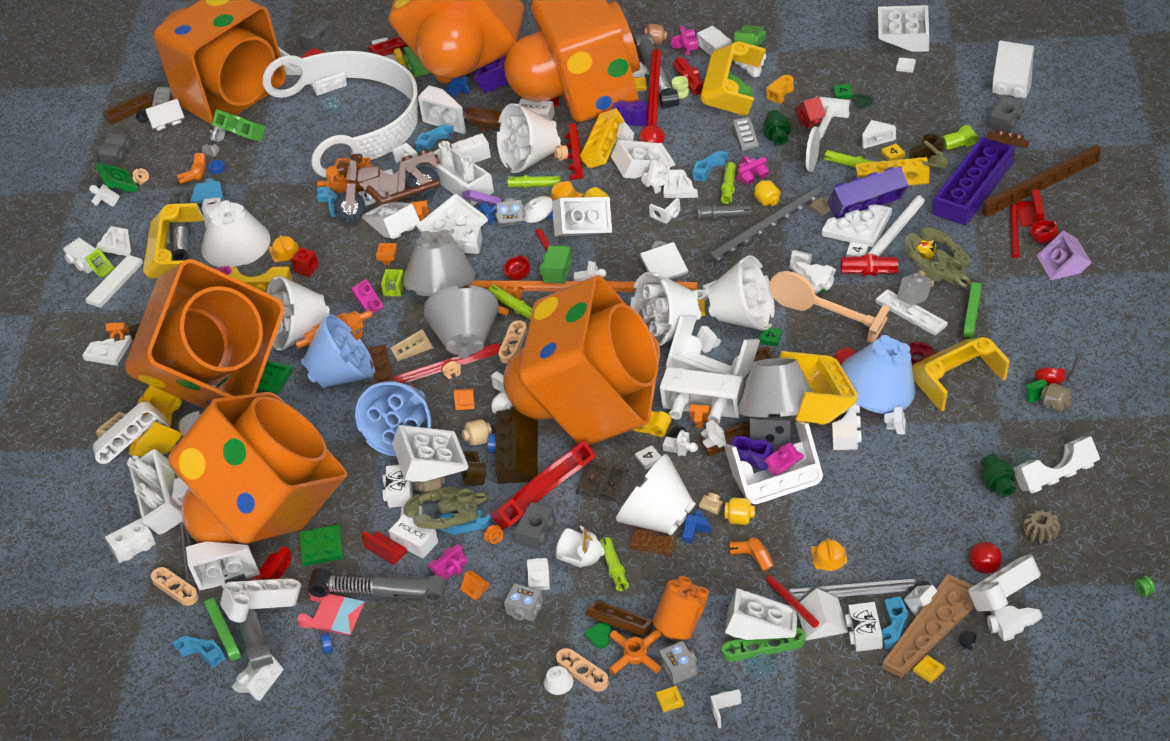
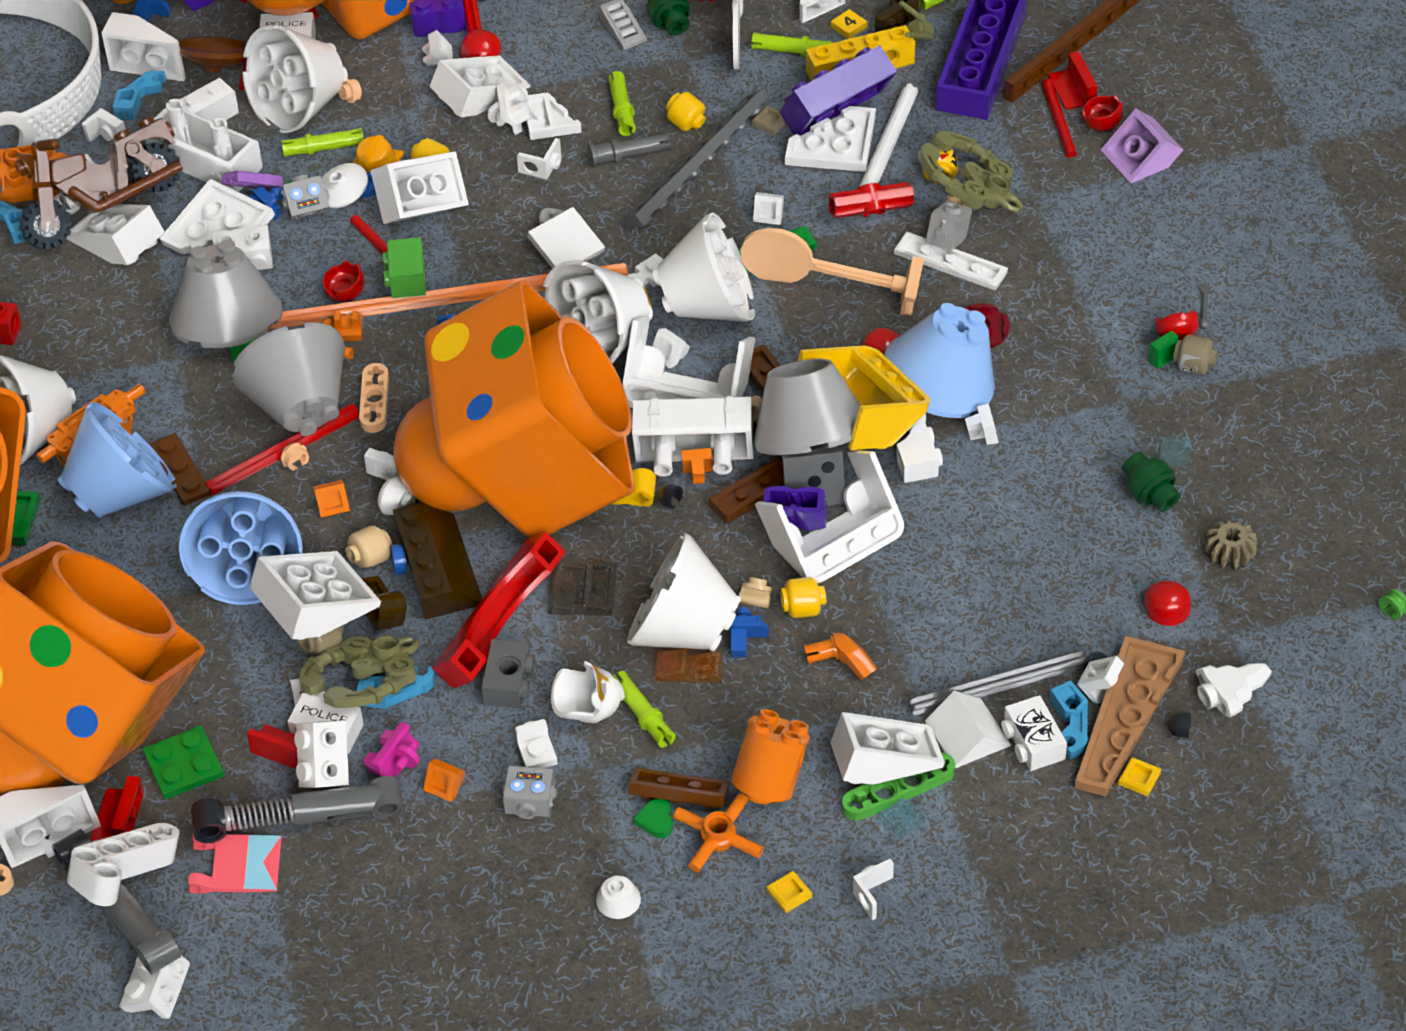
camera: 20 degrees left, 5 degrees up
(195, 645) = (36, 954): dark azure piece -> none
(222, 629) = (74, 921): bright green beam -> none
(326, 643) = (246, 910): blue tile -> none
(367, 297) = (123, 364): dark pink hips -> none
(386, 252) = (129, 288): orange tile -> none
(392, 282) = (155, 334): lime window -> none
(397, 489) = (275, 649): white brick -> none
(400, 554) = (321, 754): none -> white brick
(418, 348) = (219, 417): tan slope -> none
(421, 209) = (161, 209): orange tile -> none
(493, 532) = (445, 694): orange plate -> none
(519, 306) = (367, 341): lime pin -> none
(576, 152) = (373, 88): red hinge -> none
(586, 678) = (644, 863): light nougat beam -> none
(591, 271) = (461, 275): white piece -> none
(602, 138) = (407, 61): yellow brick -> none
(647, 457) = (639, 540): white tile -> none
(678, 662) = (786, 836): light grey head -> none
(679, 445) = (682, 514): white piece -> none
(703, 168) = (576, 83): dark azure piece -> none
(713, 435) = (732, 489): white tile -> none
(751, 166) = (646, 74): dark pink hips -> none
(770, 336) = (760, 328): green tile -> none
(783, 459) = (844, 510): dark pink hips -> none
(795, 604) = (921, 716): red bar -> none
(818, 276) = (805, 224): white rock -> none
(828, 555) = (948, 639): light orange piece -> none
(857, 249) = (843, 179): white tile -> none
(934, 367) = (1016, 339): yellow windscreen -> none
(972, 311) = (1039, 245): bright green beam -> none
(993, 590) = (1199, 648): white beam -> none
(1077, 455) = (1250, 434): white arch -> none

